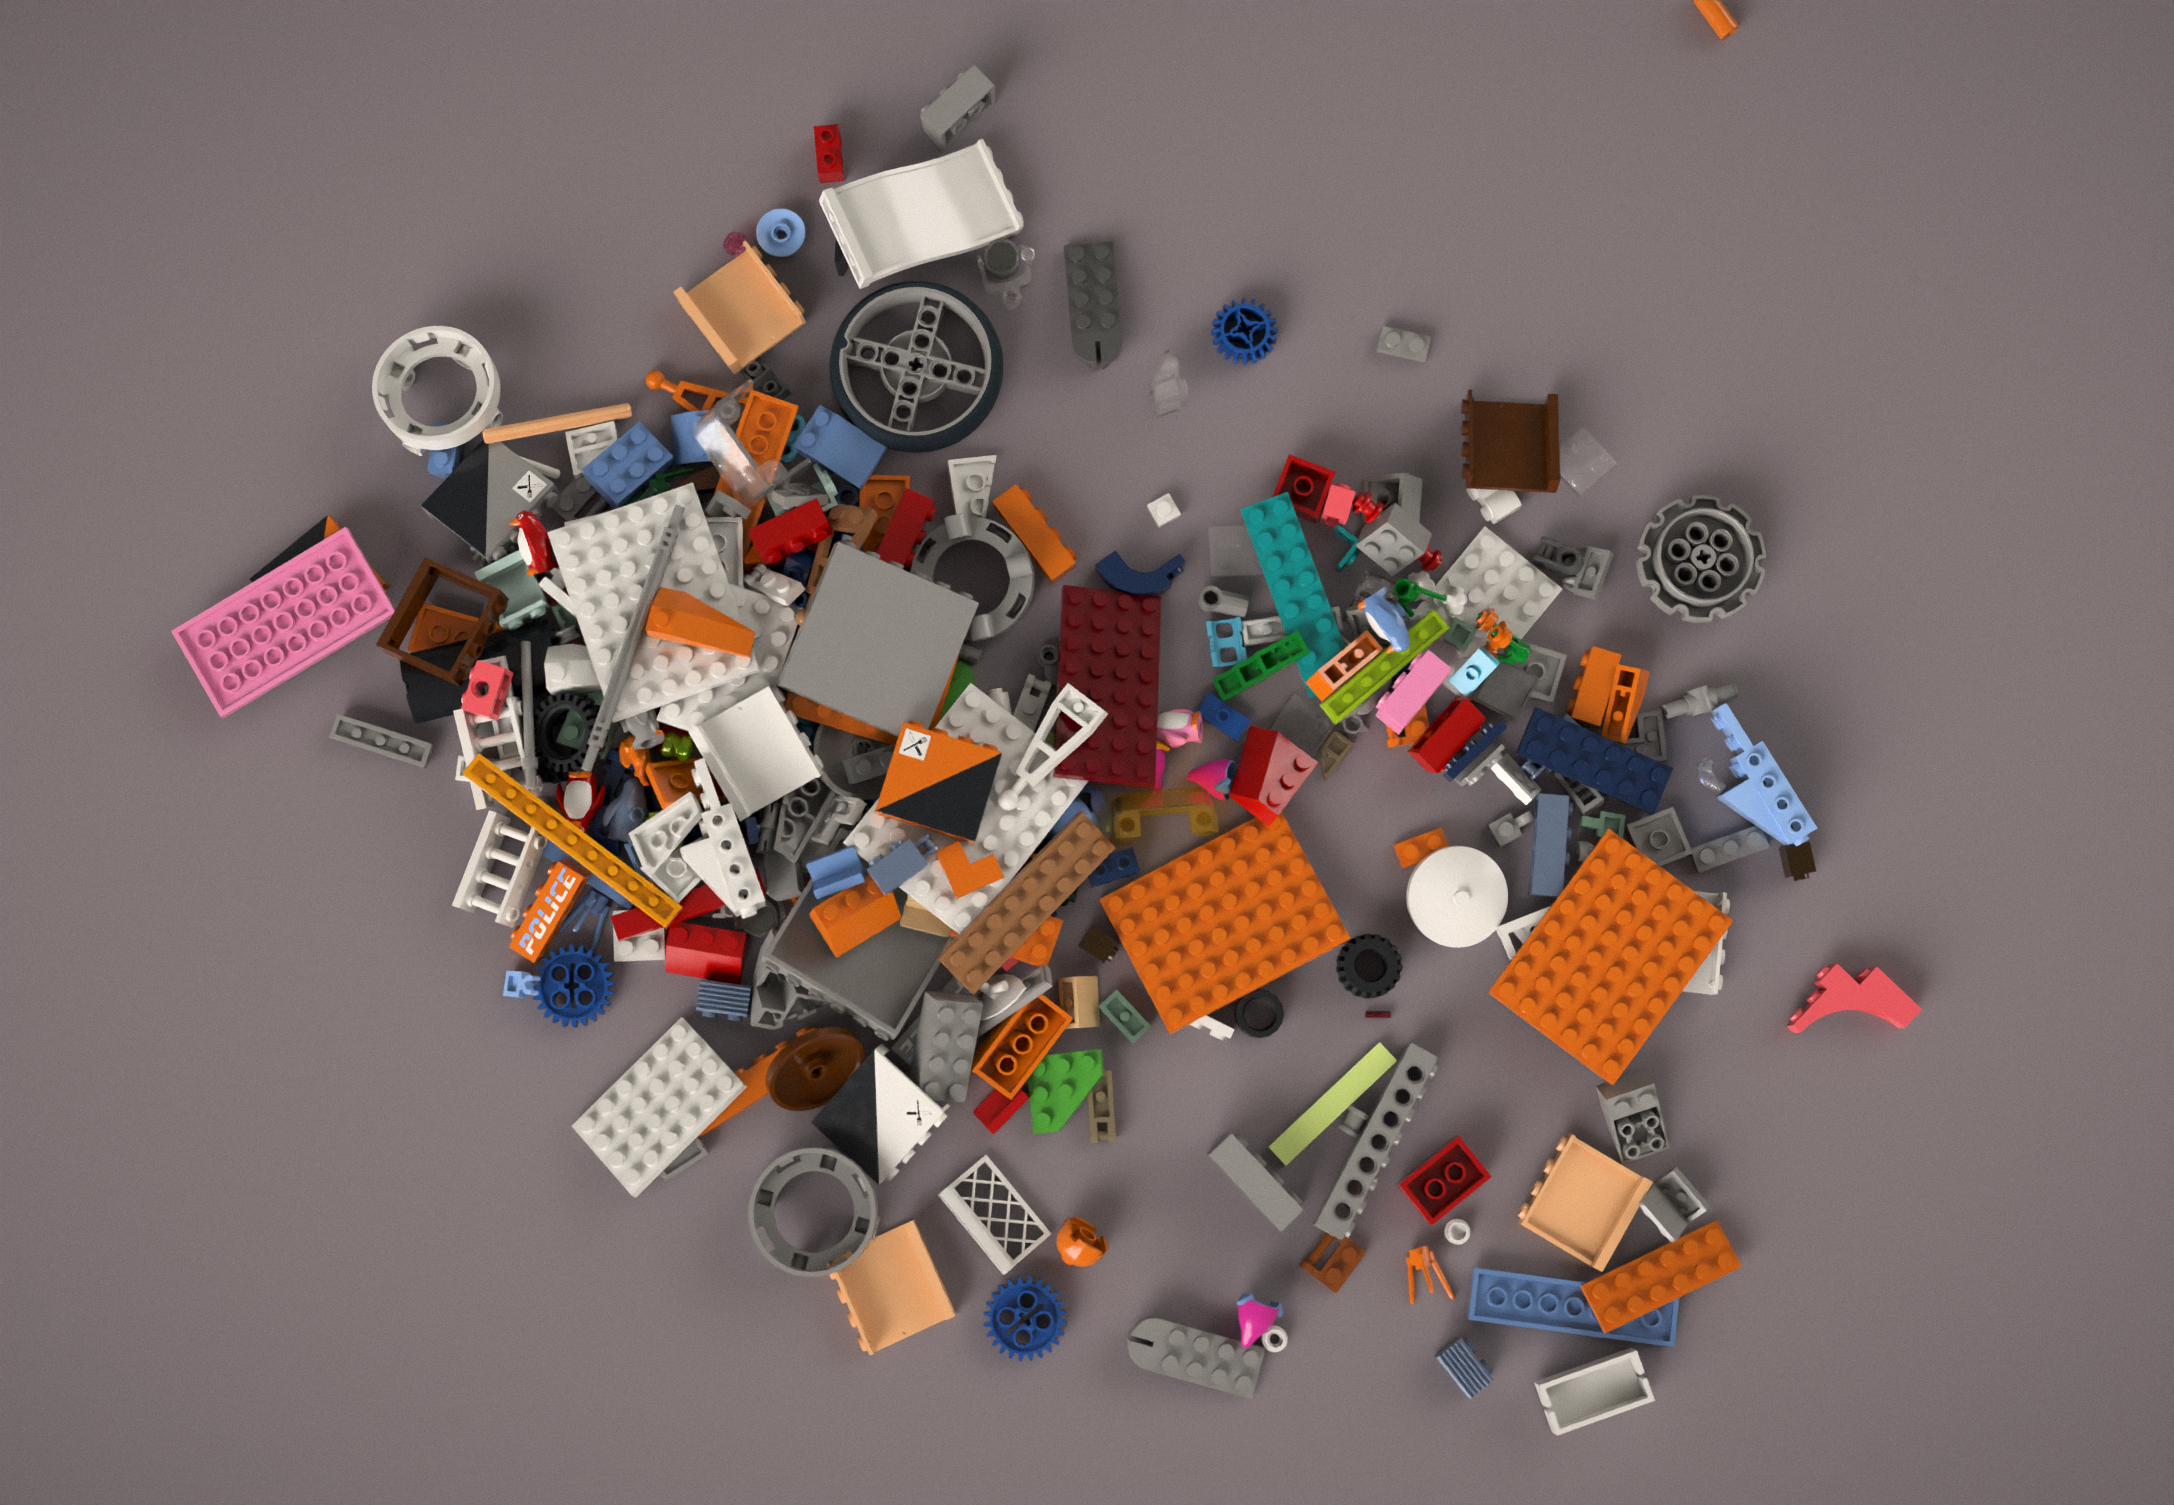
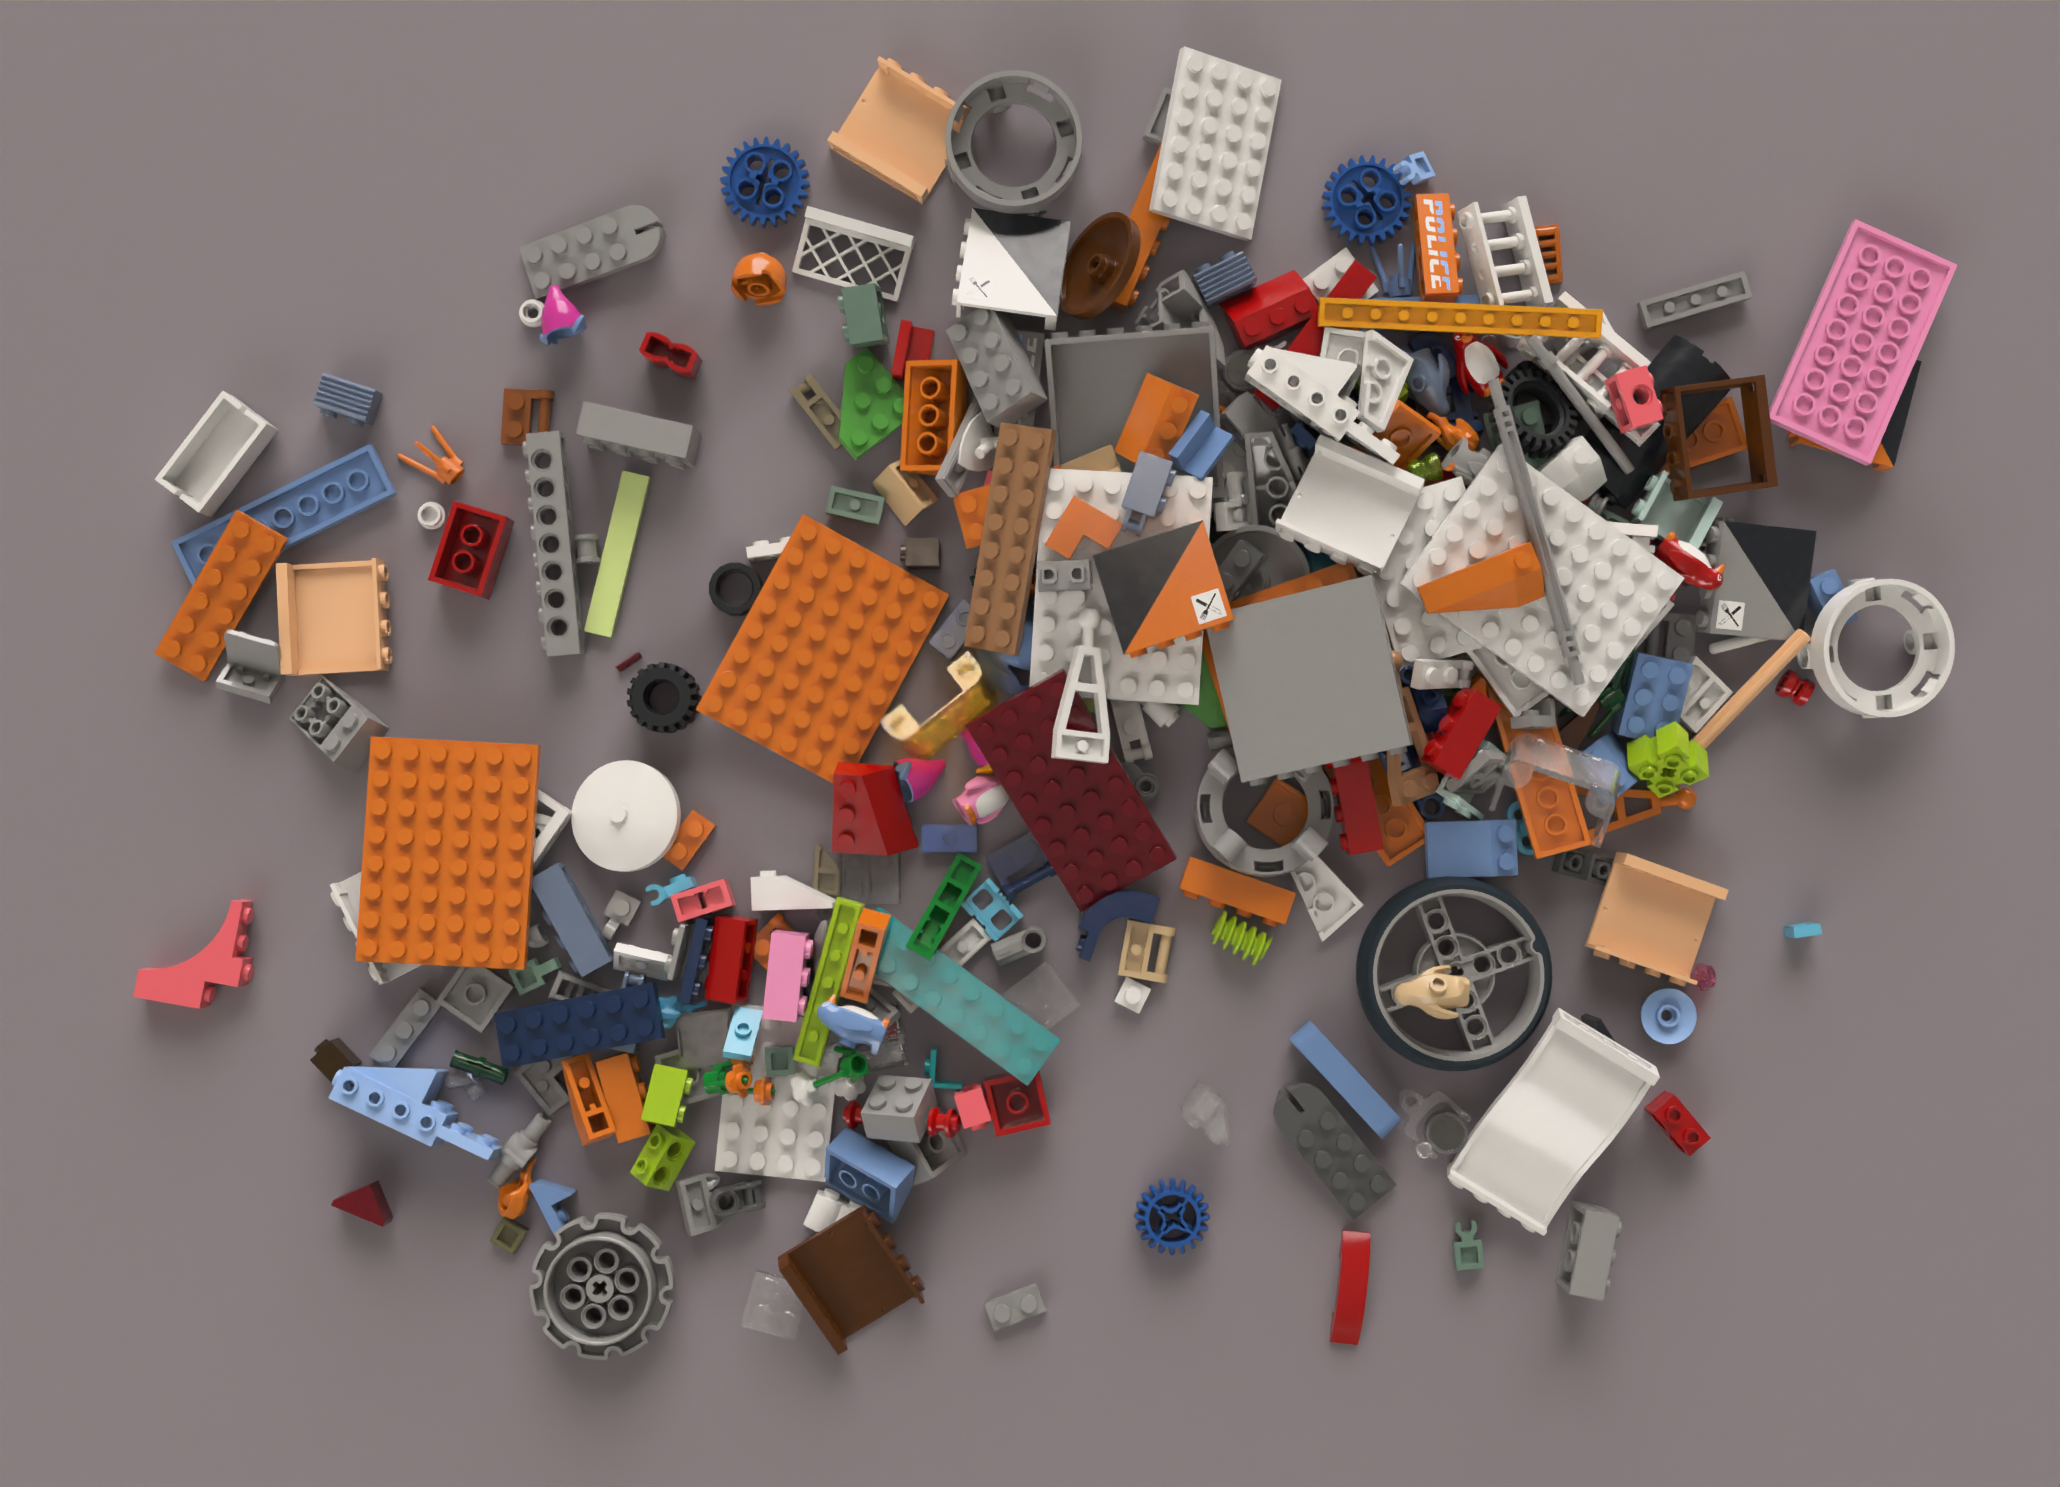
camera: 145 degrees right, 5 degrees up
(460, 846) = (1555, 253): none -> orange slope
(517, 404) = (1795, 688): none -> red wheel
(639, 228) = (1802, 930): none -> medium azure tile
(651, 413) = (1667, 759): none -> lime brick
(942, 358) = (1435, 992): none -> tan animal
(963, 567) = (1280, 813): none -> orange tile
(1006, 841) = (1064, 575): none -> light grey hips
(1019, 1155) = (864, 316): none -> sand green brick
(1044, 166) = (1467, 1250): none -> sand green plate
(1049, 344) = (1345, 1079): none -> medium blue beam
(1055, 497) = (1240, 938): none -> lime piece
(1138, 540) = (1137, 950): none -> tan plate
(1147, 195) = (1351, 1287): none -> red slope
(1183, 669) = (1015, 857): none -> dark blue plate
(1185, 1222) = (665, 354): none -> red brick
(1374, 756) = (785, 893): none -> white slope
(1439, 792) = (703, 900): none -> coral brick
(1448, 508) = (868, 1174): none -> medium blue slope
(1450, 817) = (678, 884): none -> medium azure plate
(1515, 728) = (671, 1009): none -> dark azure piece
(1562, 663) = (666, 1096): none -> lime brick
(1594, 623) = (662, 1157): none -> lime brick
(1691, 782) = (479, 1067): none -> dark green pin
(1699, 651) = (548, 1197): none -> medium blue slope
(1725, 668) = (515, 1195): none -> orange piece
(1748, 644) = (509, 1235): none -> olive tile
(1841, 738) = (366, 1203): none -> dark red slope

